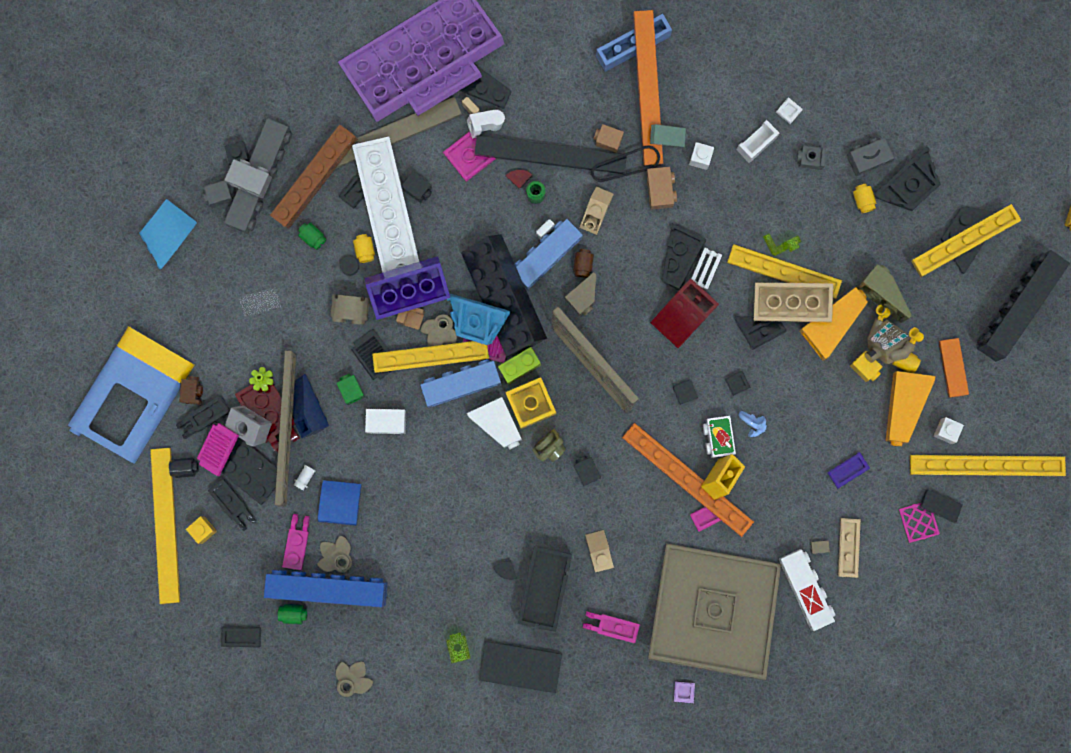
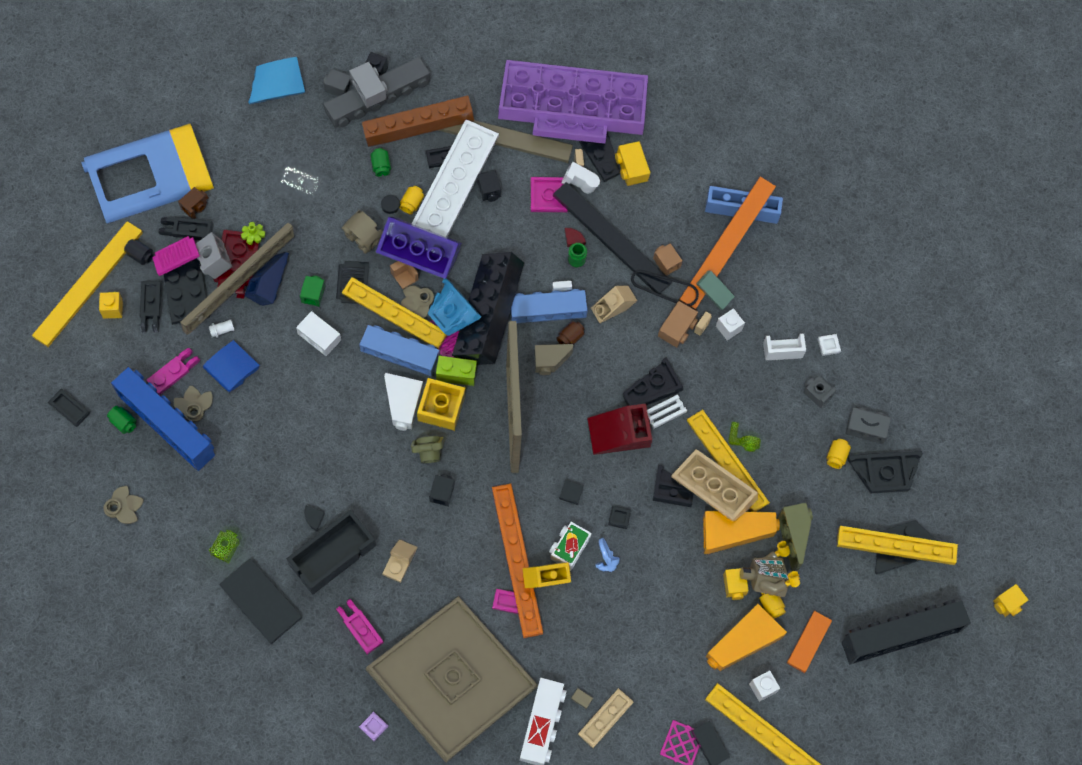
camera: 30 degrees right, 15 degrees down
(516, 76) = (632, 163): none -> yellow brick
(679, 171) = (703, 323): none -> tan tile
(848, 470) = (655, 655): dark purple tile -> none

